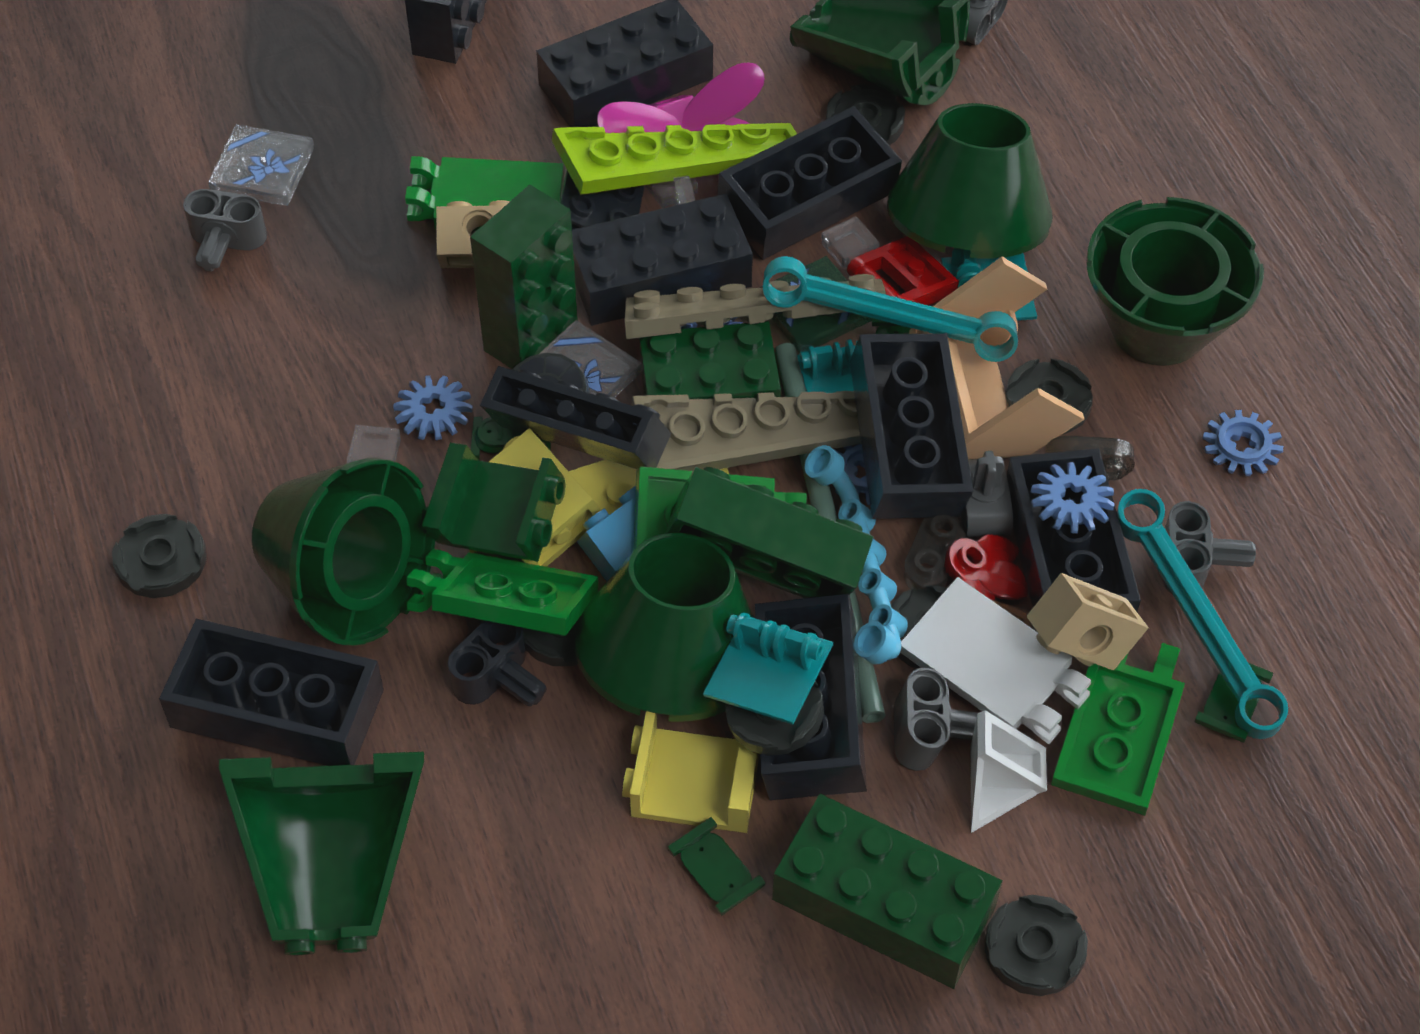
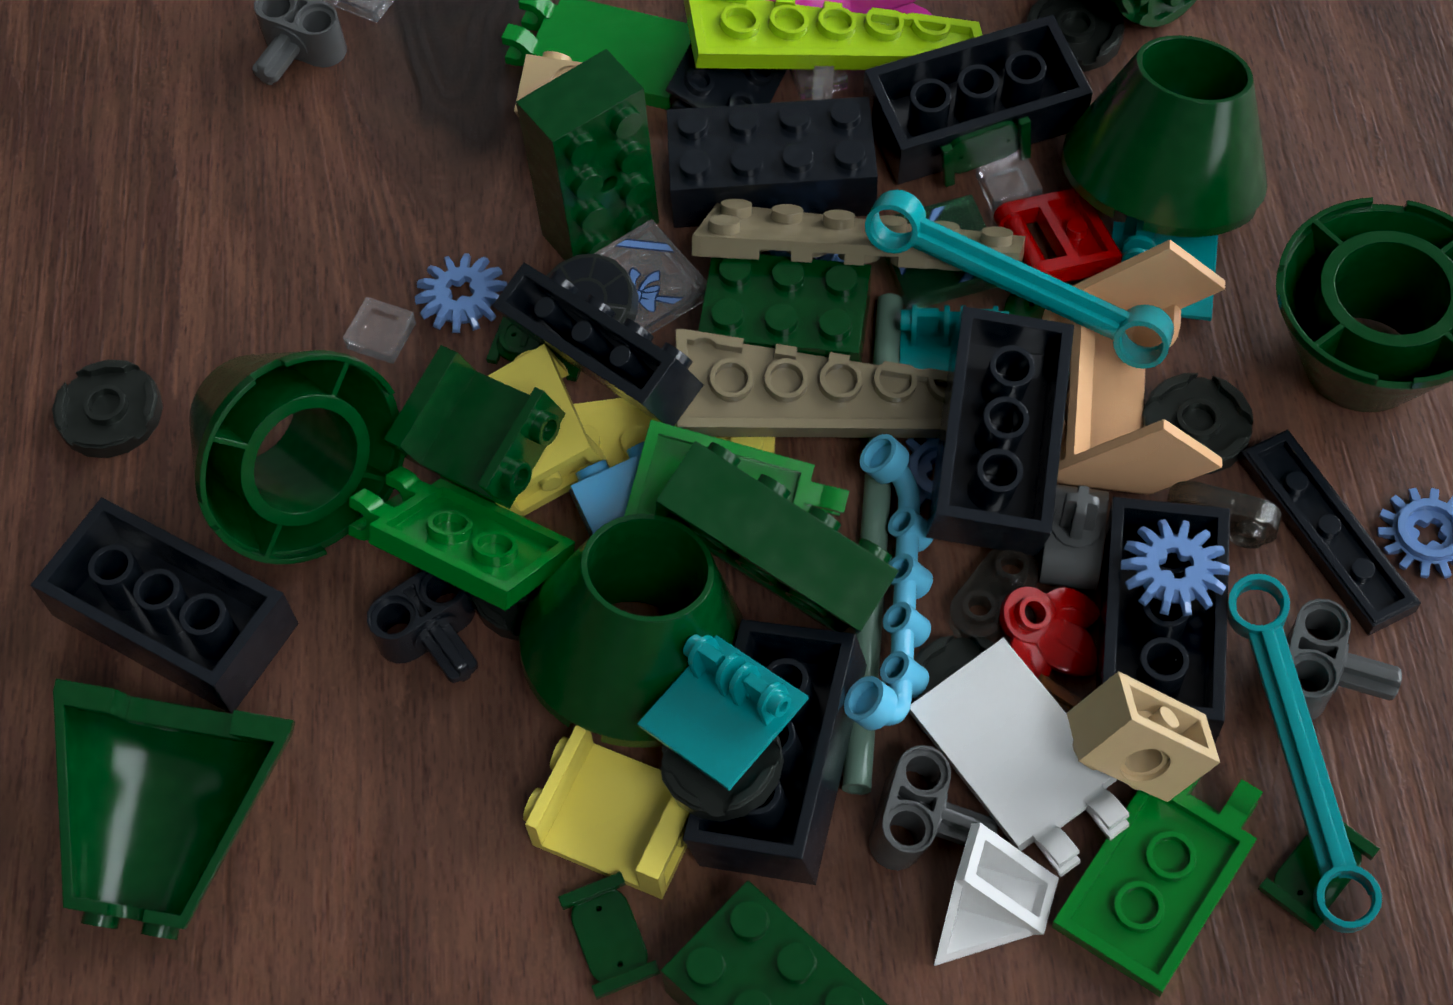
camera: 20 degrees right, 5 degrees up
(829, 217) = (985, 147): none -> dark green piece
(1170, 456) = (1329, 532): none -> black tile

